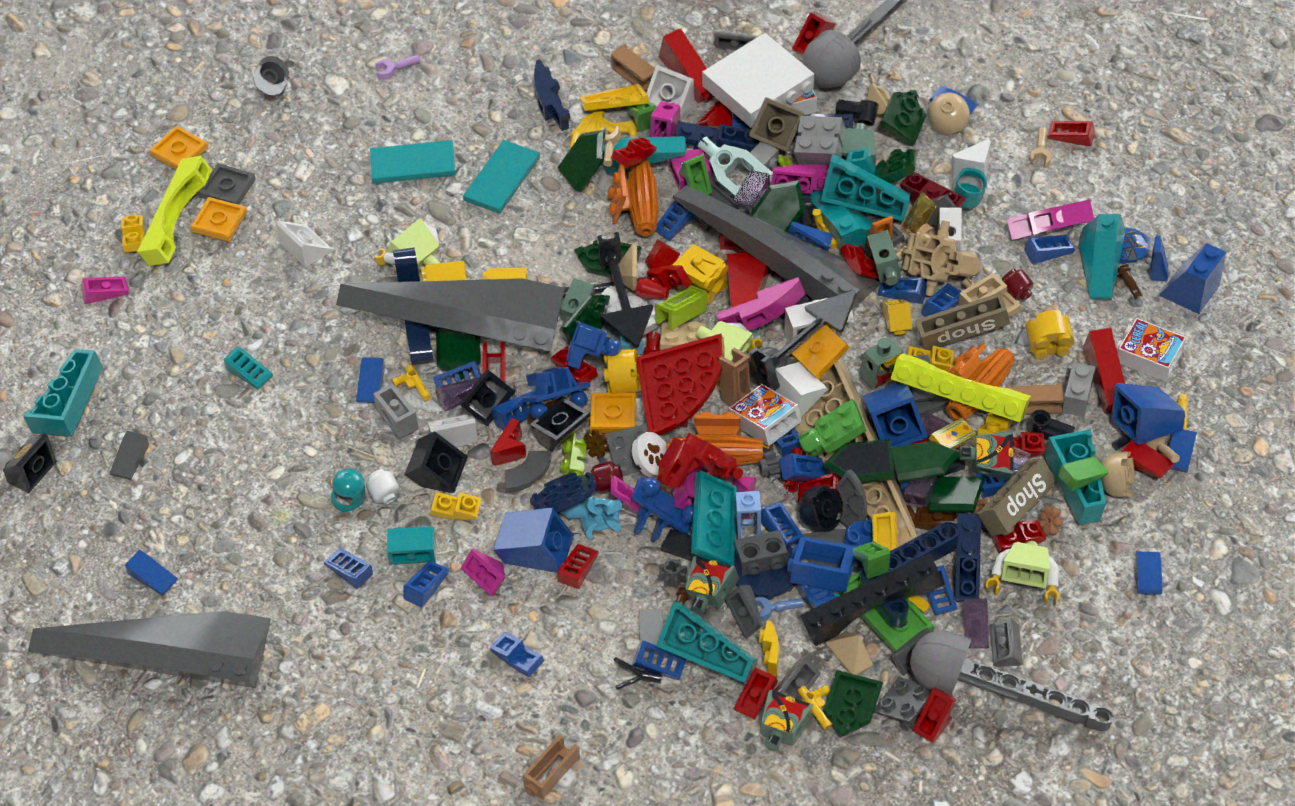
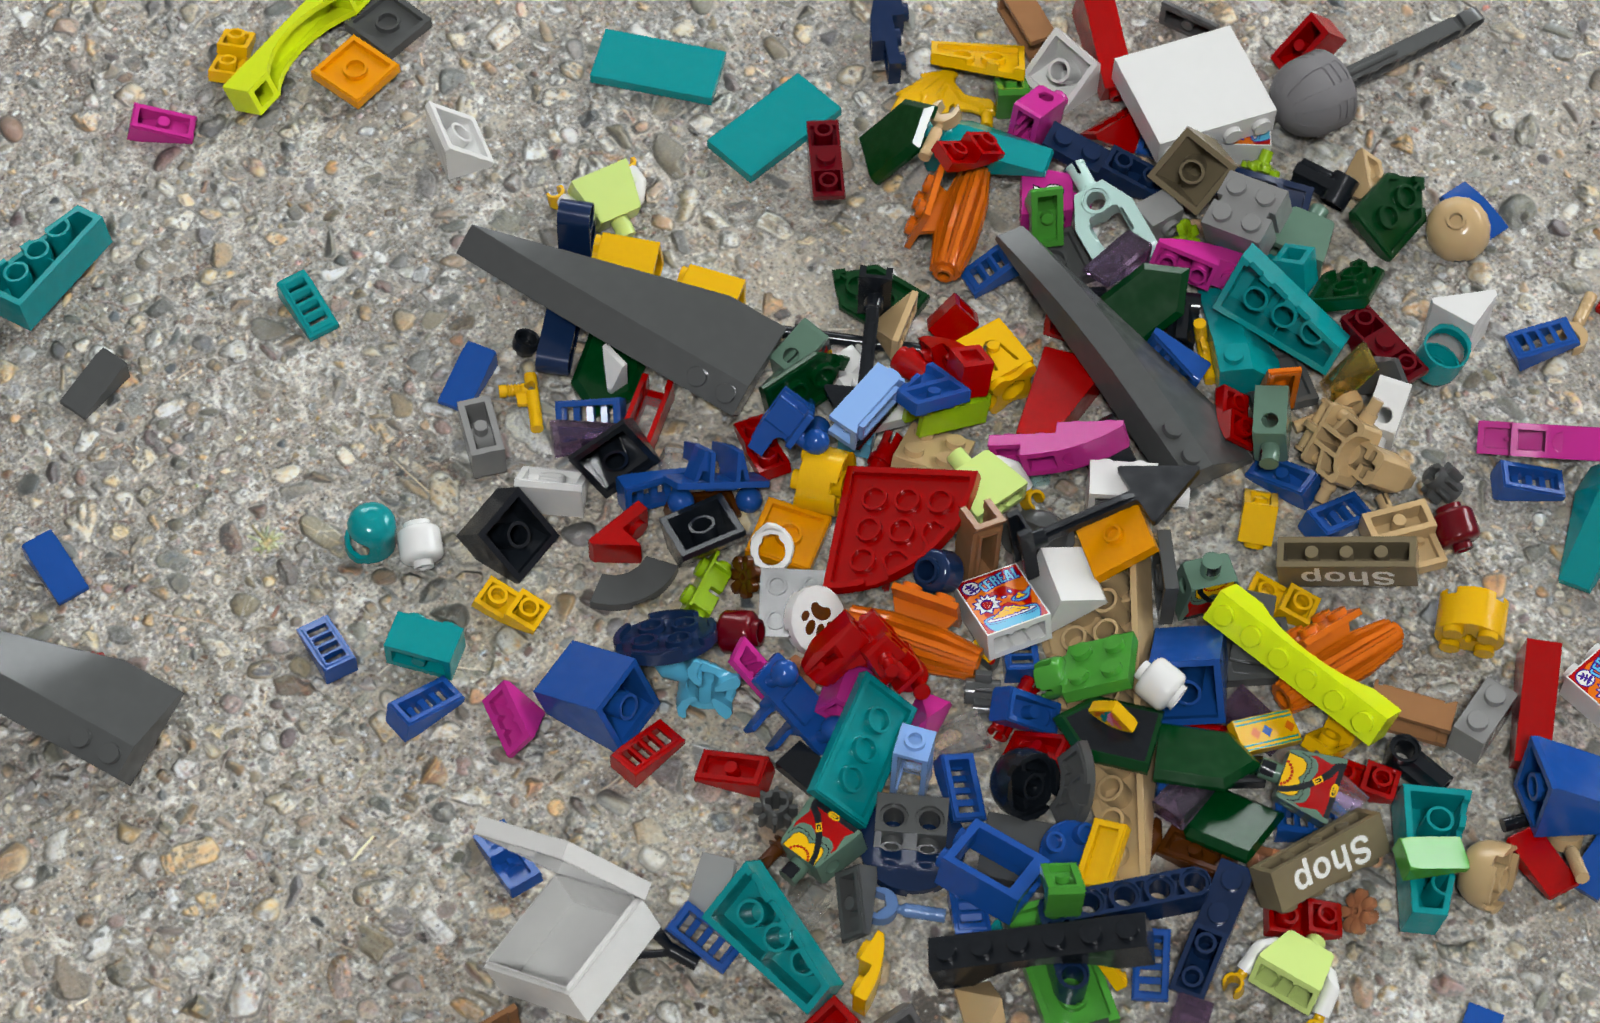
camera: 15 degrees right, 5 degrees up
(398, 348) = (525, 342): none -> black hinge
(463, 346) = (614, 369): none -> white slope
(543, 185) = (825, 160): none -> dark red slope
(584, 673) = (578, 929): none -> white container
(605, 409) = (772, 529): none -> white piece
(634, 317) = (865, 405): none -> light blue window
(637, 560) = (735, 772): none -> red slope
(672, 297) = (932, 392): none -> blue wing
(688, 280) = (972, 368): none -> red panel
(718, 401) = (939, 571): none -> dark blue head
(814, 108) = (1261, 165): none -> lime plant
(857, 365) = (1164, 577): none -> dark grey tile
(861, 449) = (1113, 715): none -> yellow tile
(882, 422) = (1160, 684): none -> white head
(999, 262) = (1442, 483): none -> dark grey gear
(1023, 173) = (1526, 336): none -> blue slope

